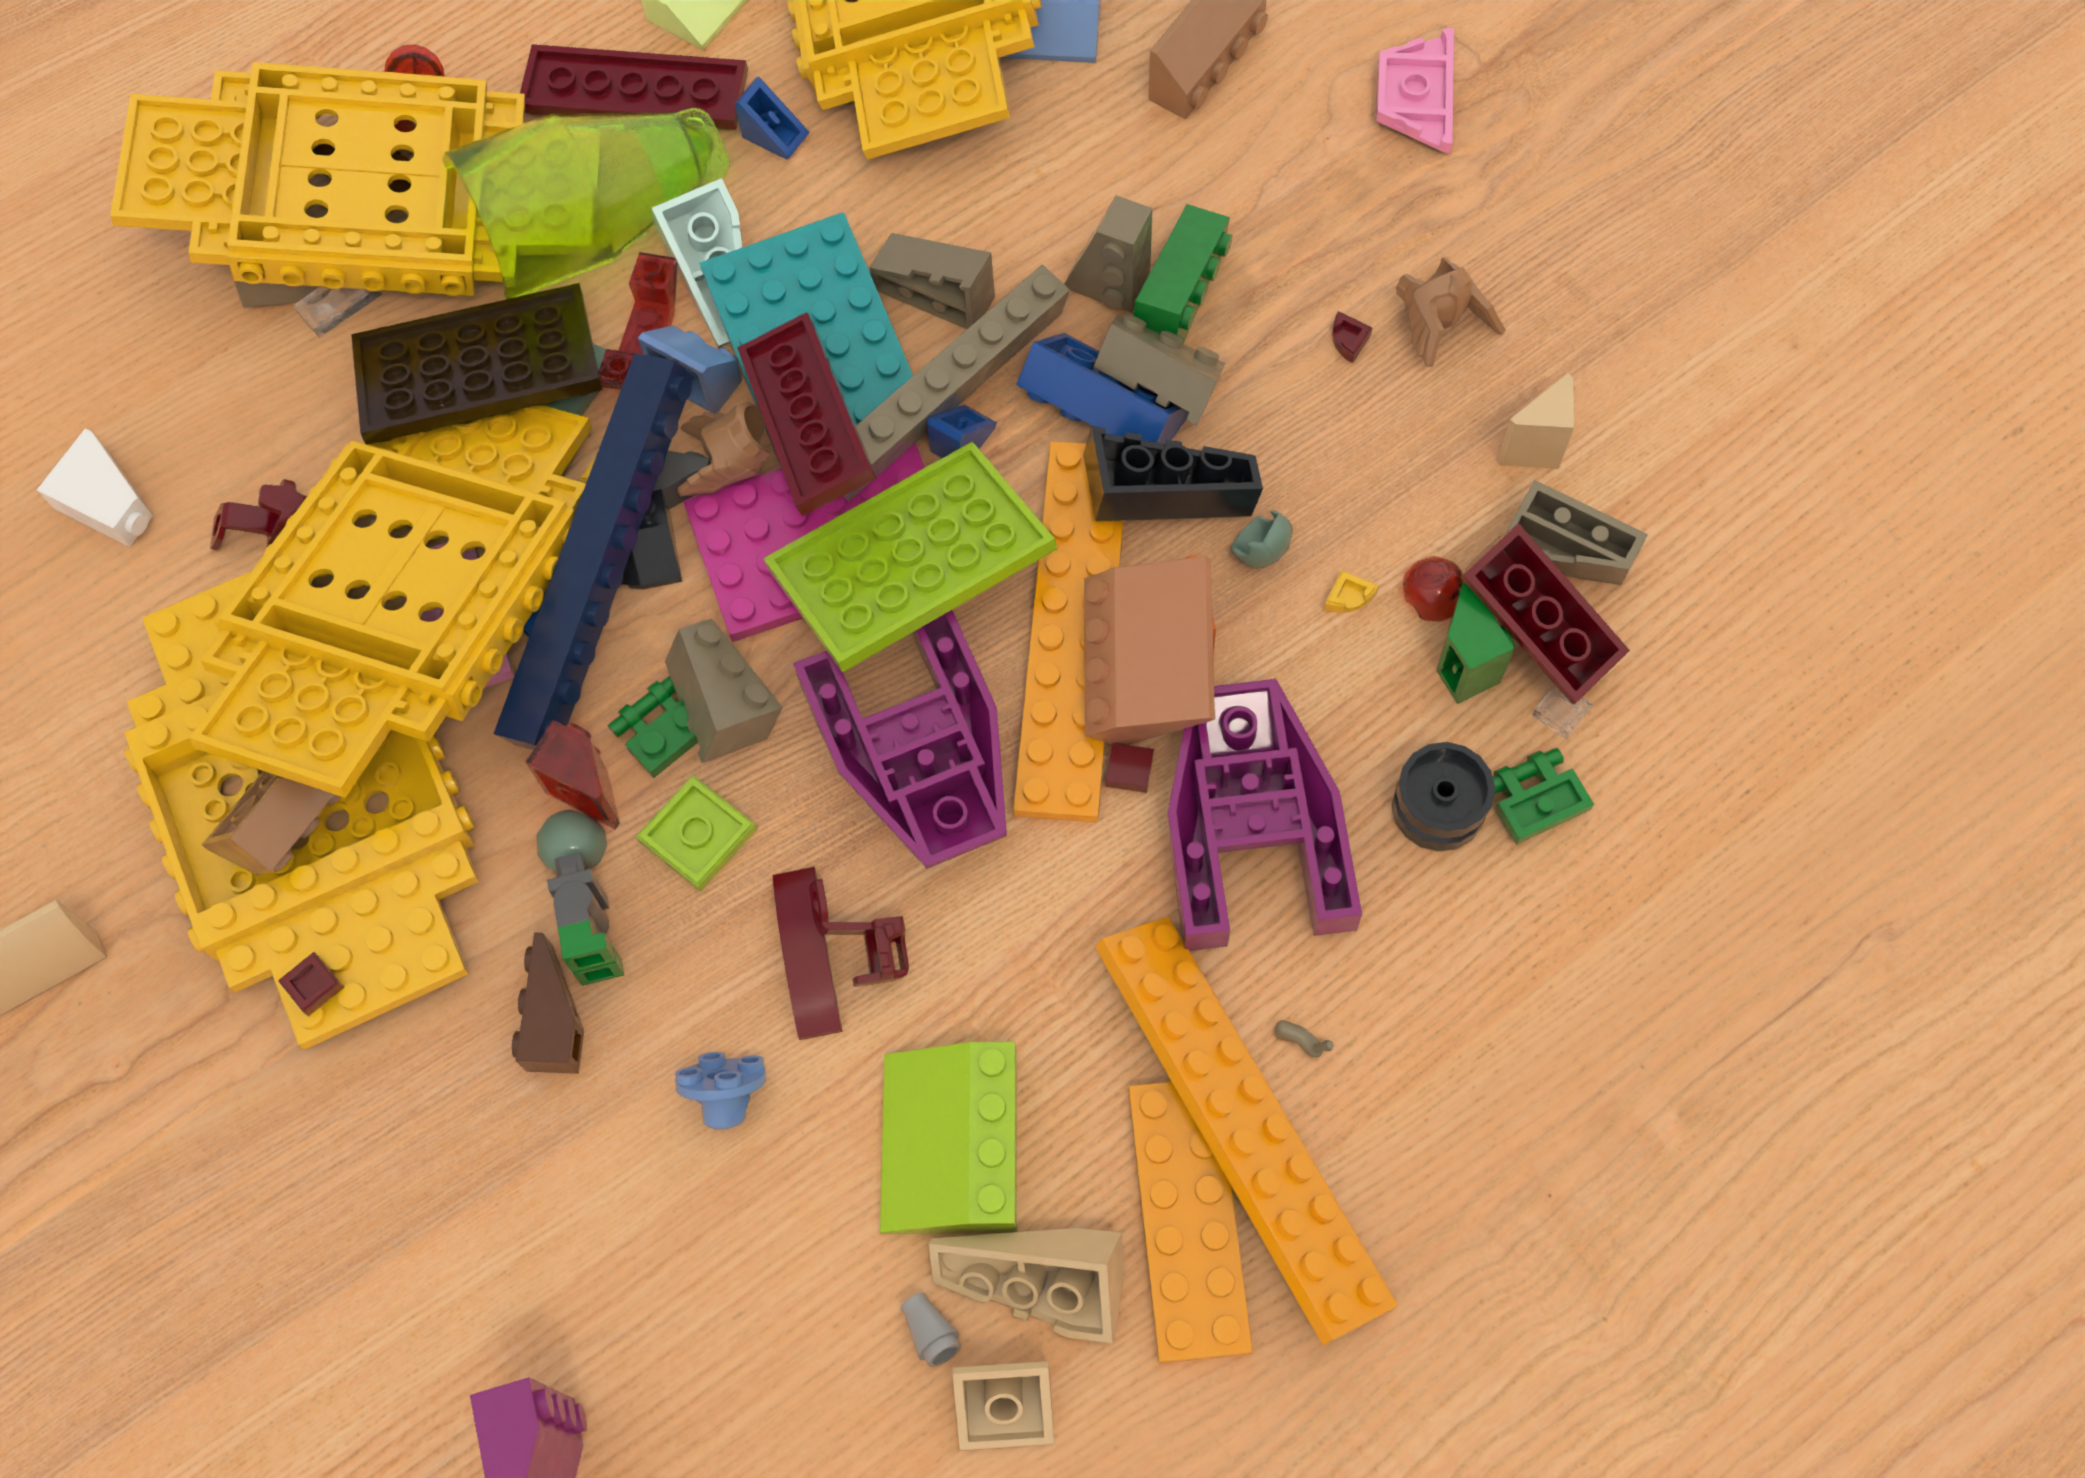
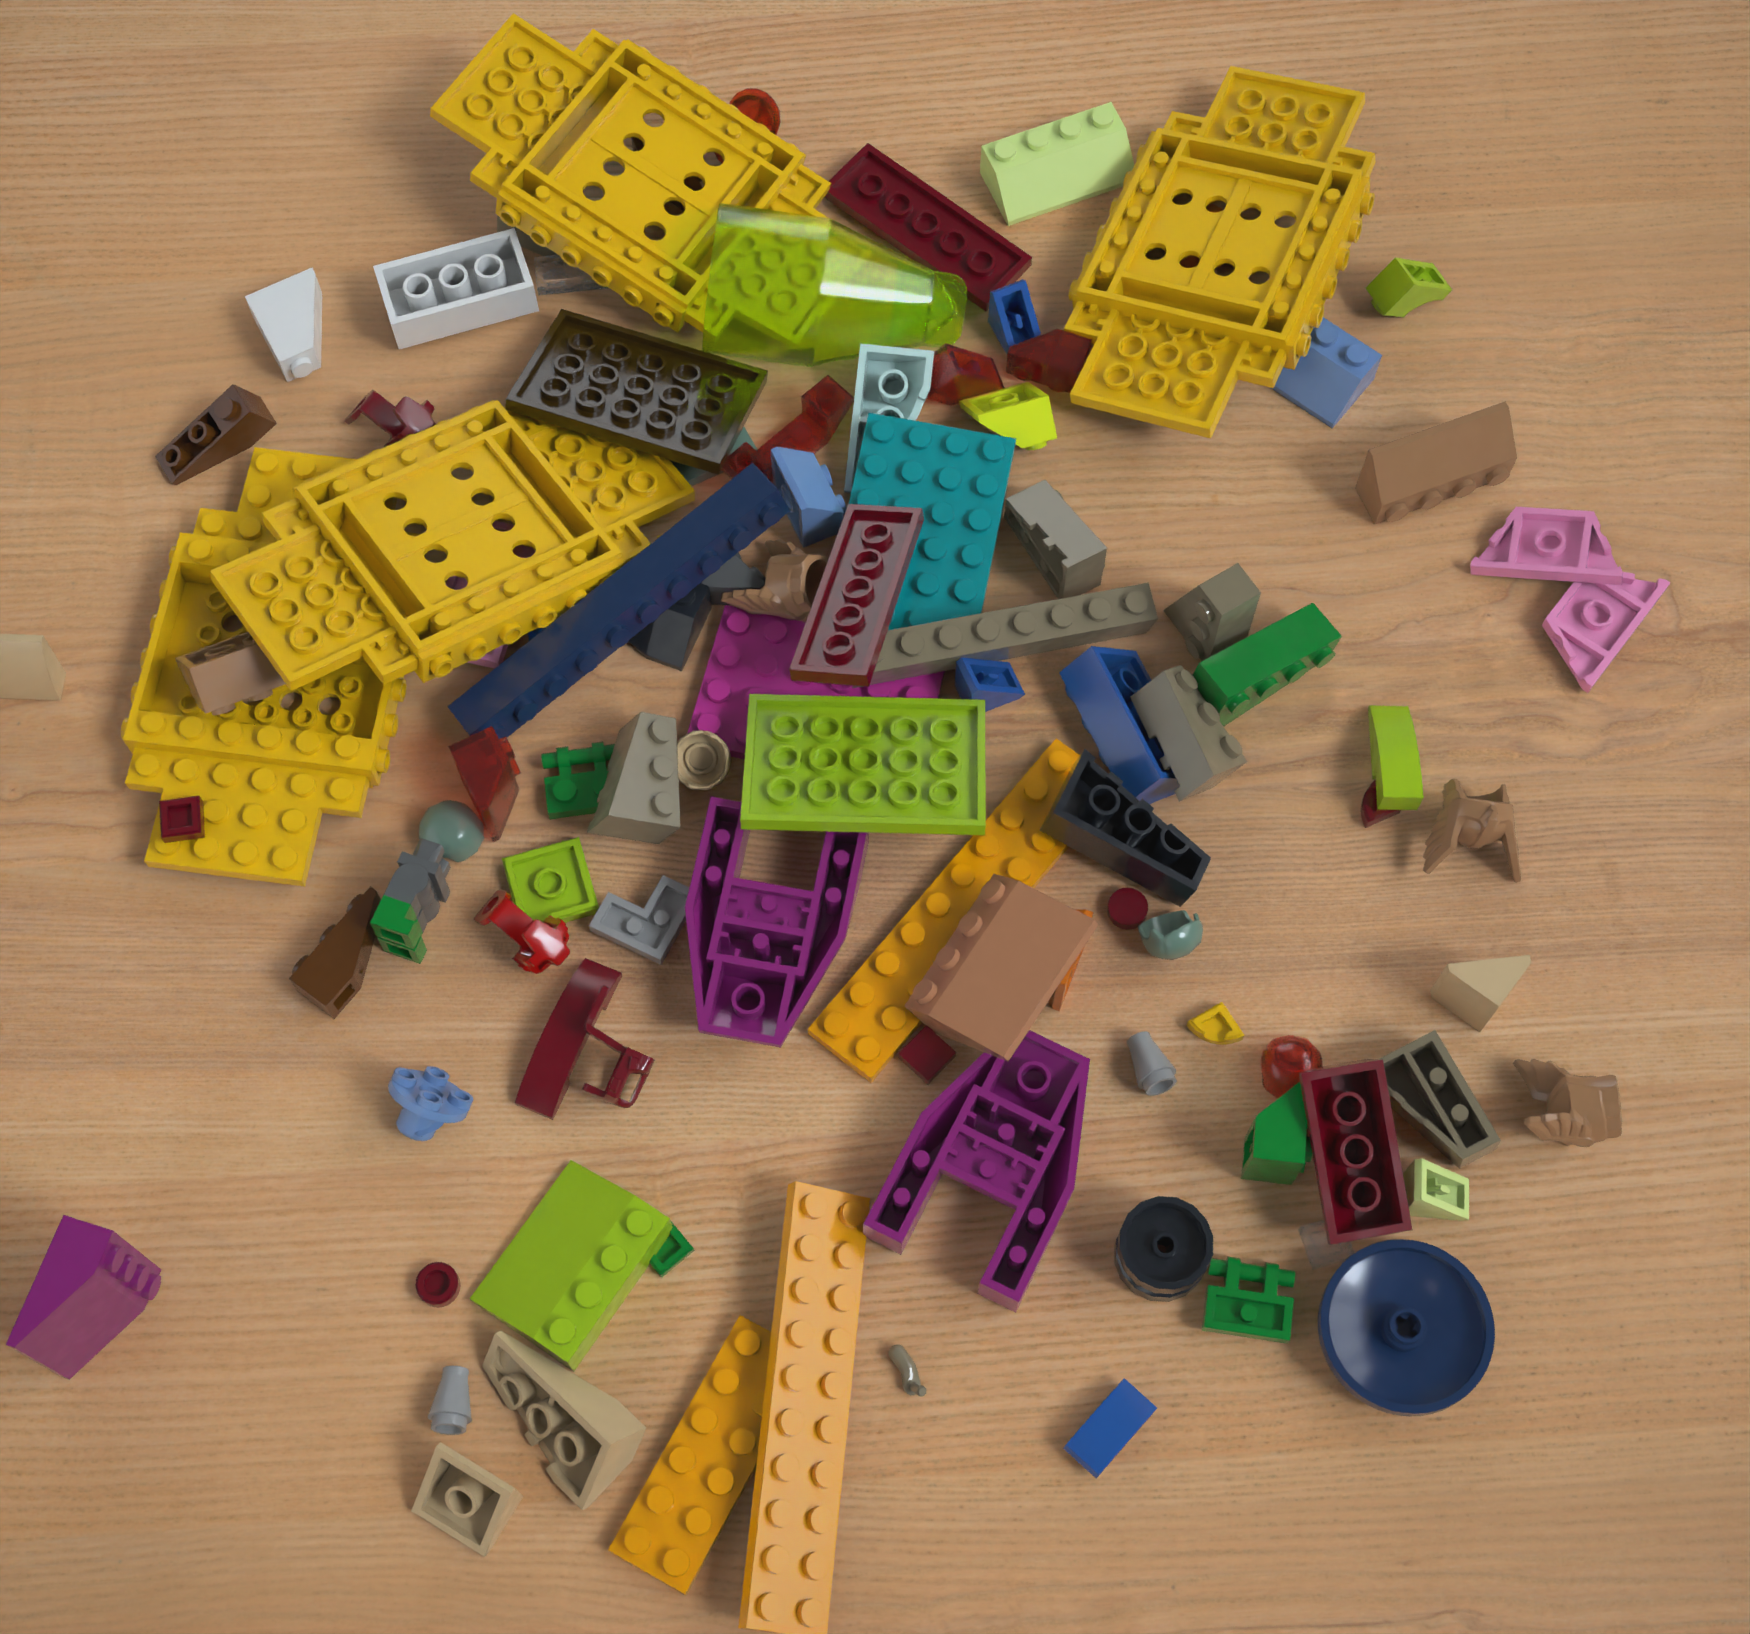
camera: 30 degrees right, 0 degrees up
(94, 630) = (218, 433): none -> reddish brown slope
(238, 371) = (456, 288): none -> white brick
(723, 886) = (539, 941): none -> red piece
(756, 191) = (961, 375): none -> clear red slope
(760, 640) = (702, 760): none -> tan hair
(810, 817) = (645, 930): none -> light grey plate
(822, 136) = (1049, 359): none -> clear red slope
(824, 193) = (1016, 413): none -> neon yellow slope
(842, 1239) = (438, 1284): none -> dark red tile
(1029, 1074) = (671, 1253): none -> green tile
(1209, 541) = (1127, 908): none -> dark red tile
(1323, 658) = (1151, 1066): none -> light grey cone
(1339, 291) = (1395, 758): none -> lime slope
(1342, 54) = (1549, 547): none -> bright pink wing
(1502, 972) = (1110, 1428): none -> blue slope
(1622, 610) = (1436, 1191): none -> yellowish green slope
(1677, 733) = (1406, 1327): none -> dark blue dish
(1683, 474) = (1578, 1107): none -> medium nougat helmet

